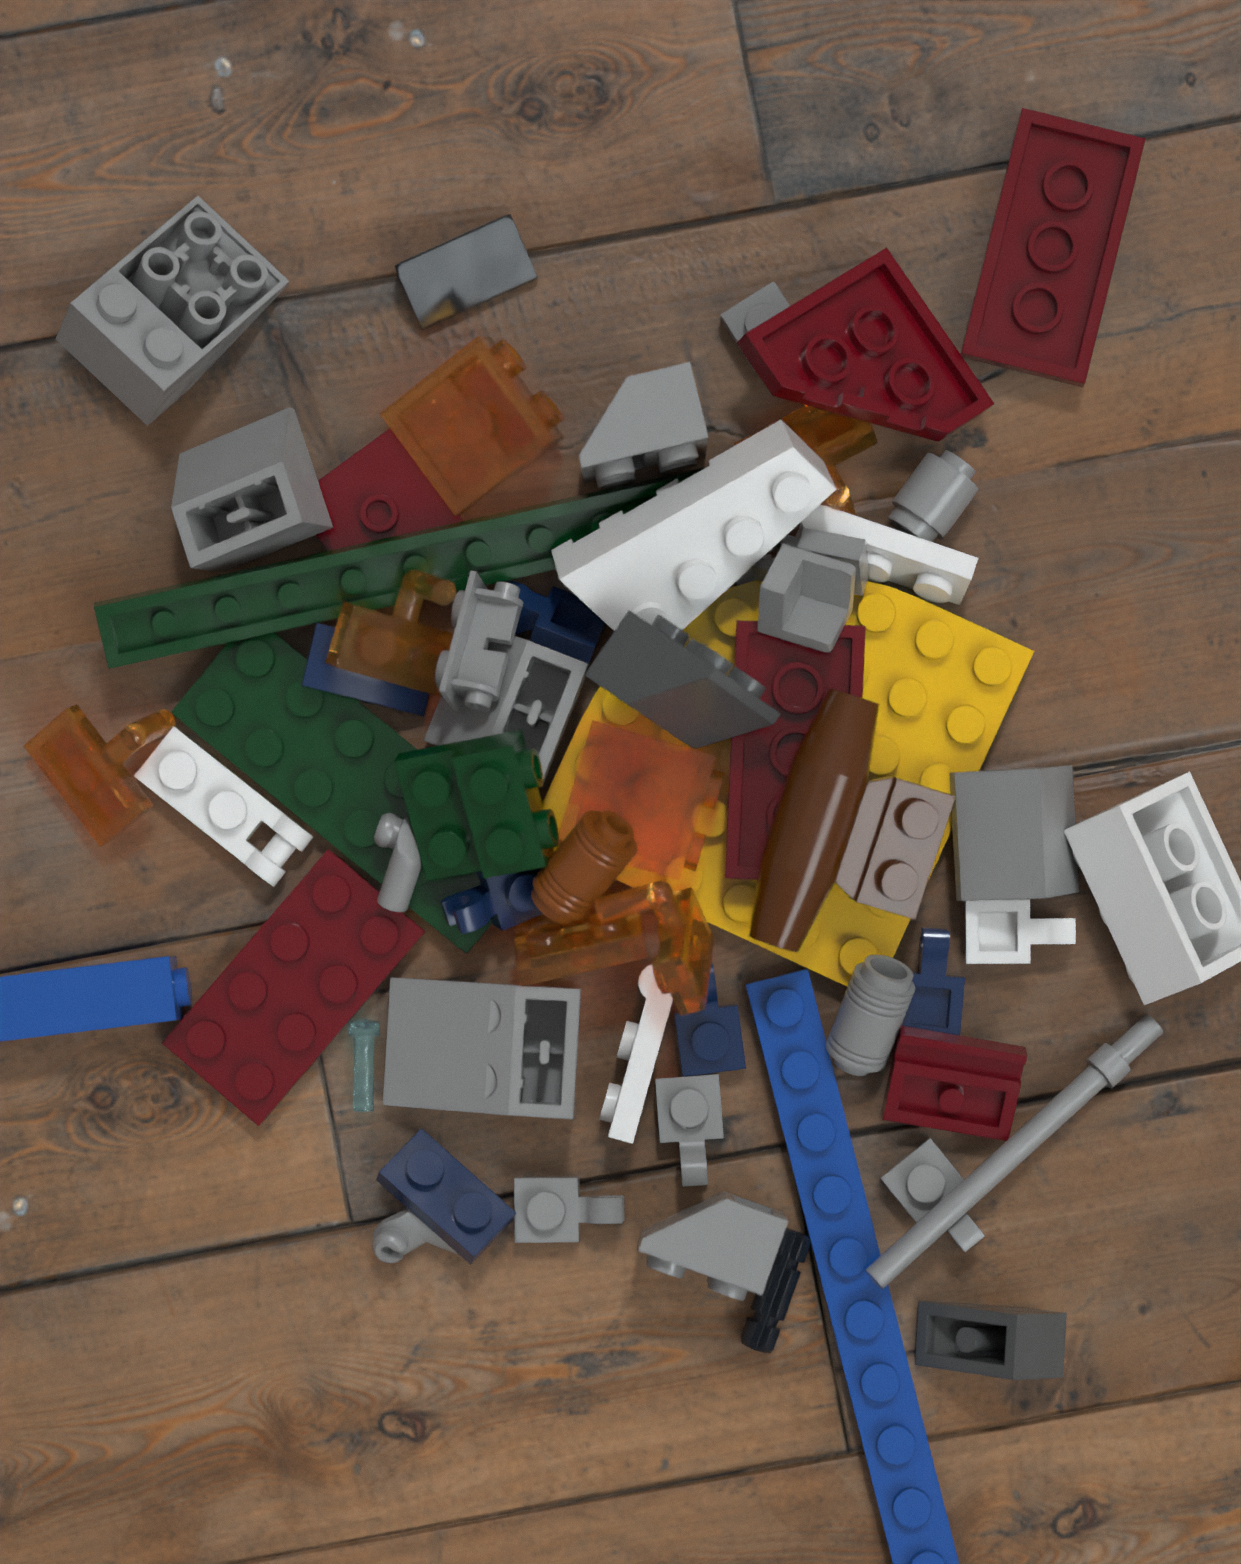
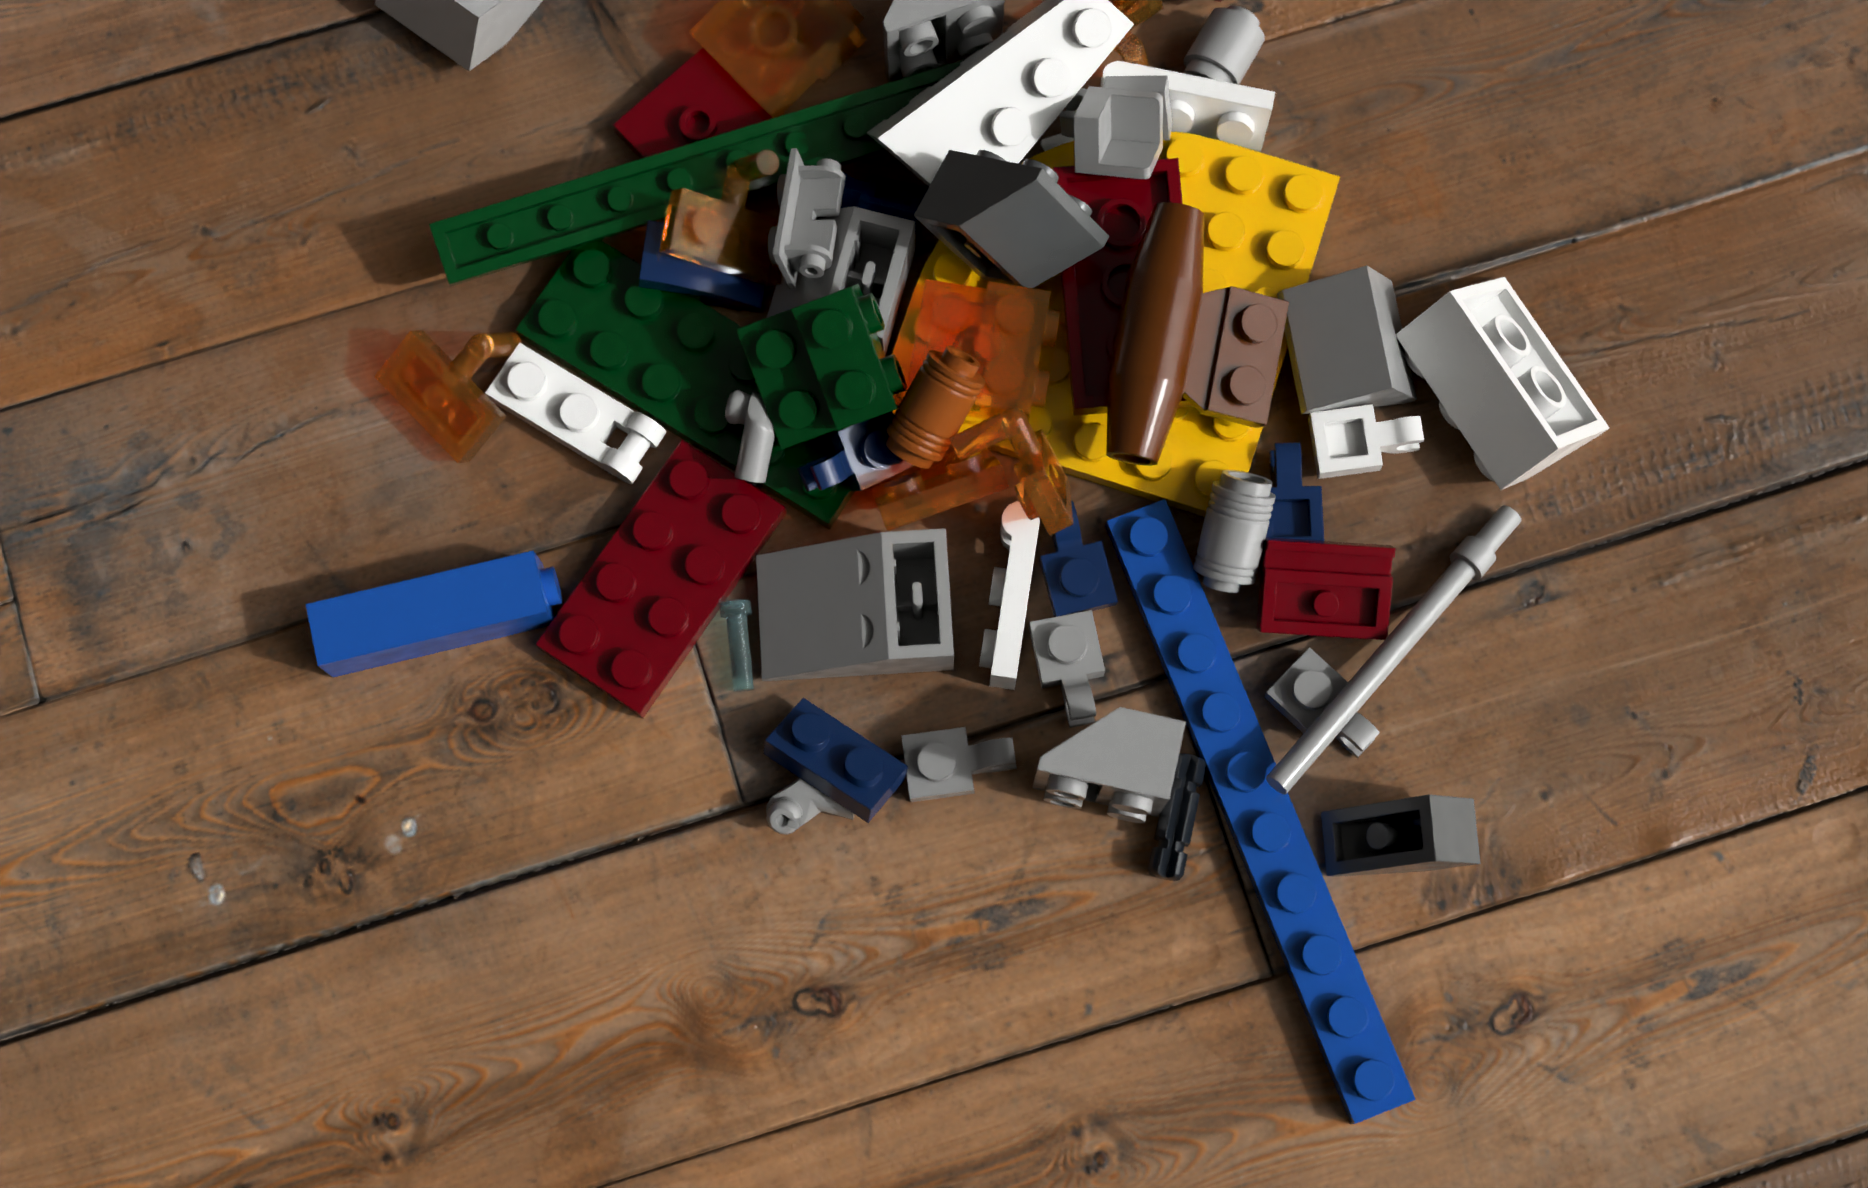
camera: 10 degrees left, 10 degrees down
(247, 494) = (572, 118): light grey slope -> none

